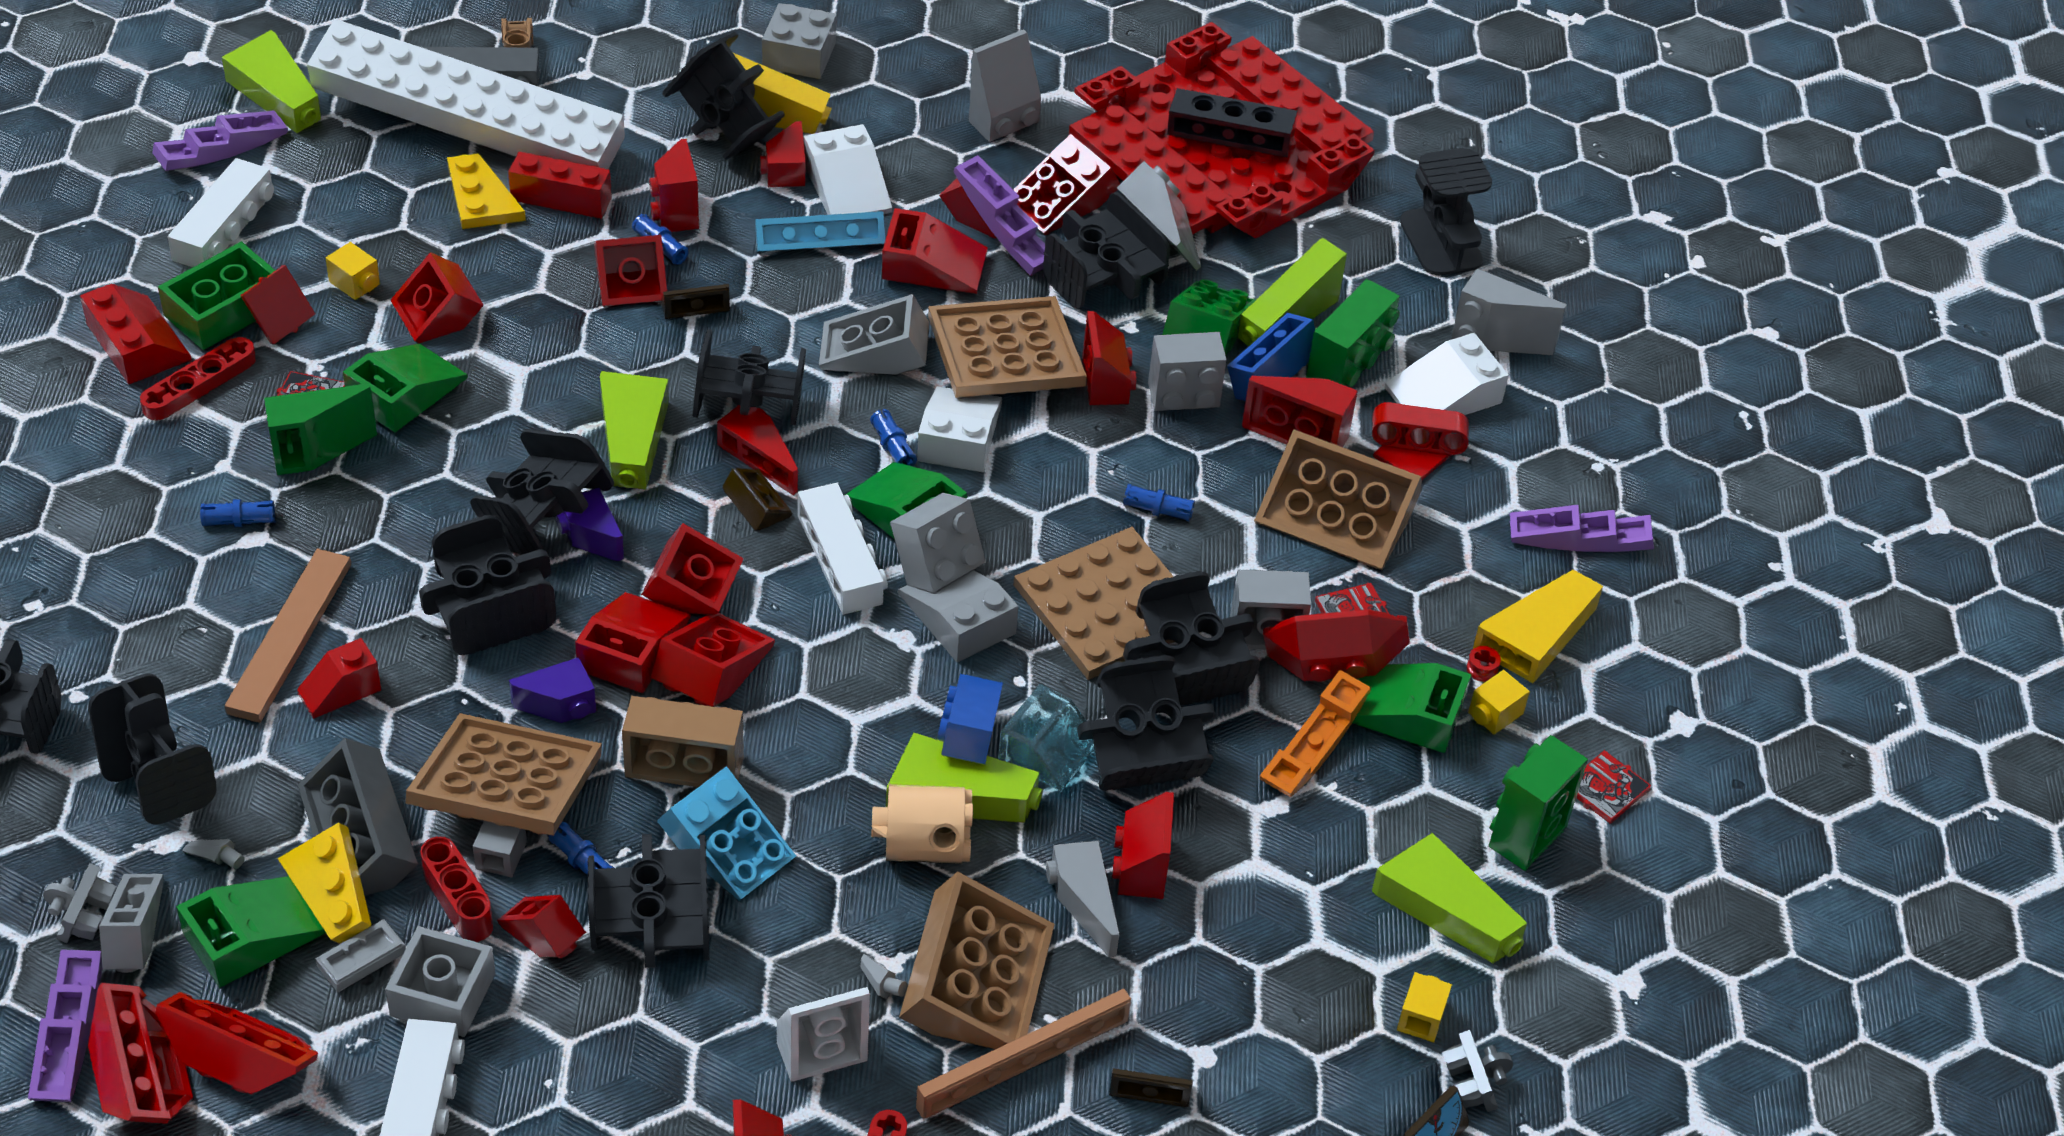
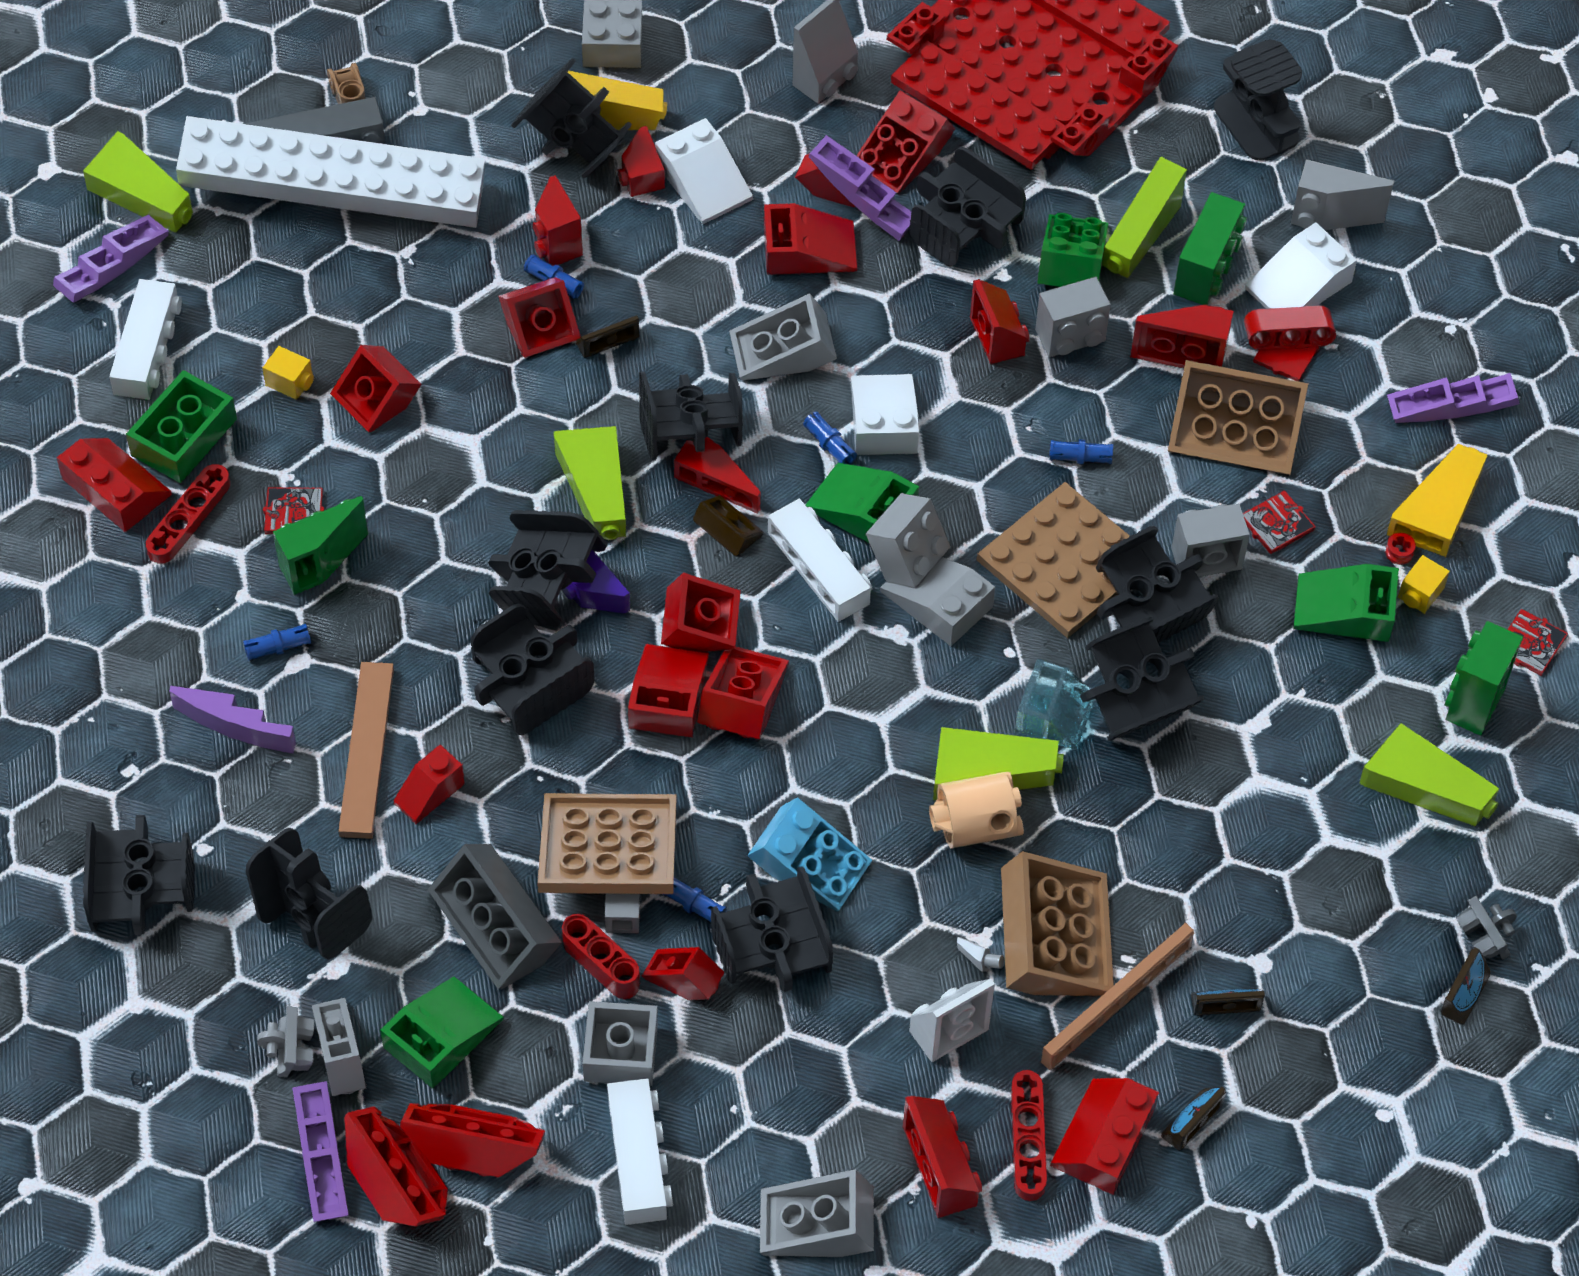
camera: 10 degrees left, 10 degrees up
(151, 570) = (222, 715): none -> medium lavender slope
(215, 851) = (382, 967): light grey bar -> none
(278, 304) = (237, 425): red piece -> none
(330, 882) = (493, 975): yellow wing -> none
(360, 955) = (541, 1034): light grey plate -> none
(404, 382) = (380, 474): green slope -> none
(481, 194) = (371, 263): yellow wing -> none
(555, 692) = (620, 755): dark purple slope -> none
(560, 184) = (444, 240): red brick -> none
(680, 741) = (748, 780): medium nougat brick -> none
(820, 231) = (697, 238): medium azure plate -> none
(969, 718) = (986, 703): blue brick -> none
(1006, 346) = (903, 323): medium nougat plate -> none
(1084, 890) = (1126, 840): light grey slope -> none
(1144, 848) = (1166, 789): red slope -> none
(1158, 201) = (998, 146): light grey slope -> none
(1232, 122) = (1041, 42): black brick -> none
(1276, 353) = (1144, 283): blue brick -> none
(1318, 736) = (1279, 650): orange slope -> none
(1348, 641) = (1276, 564): red wedge -> none
(1424, 1007) = (1431, 880): yellow brick -> none

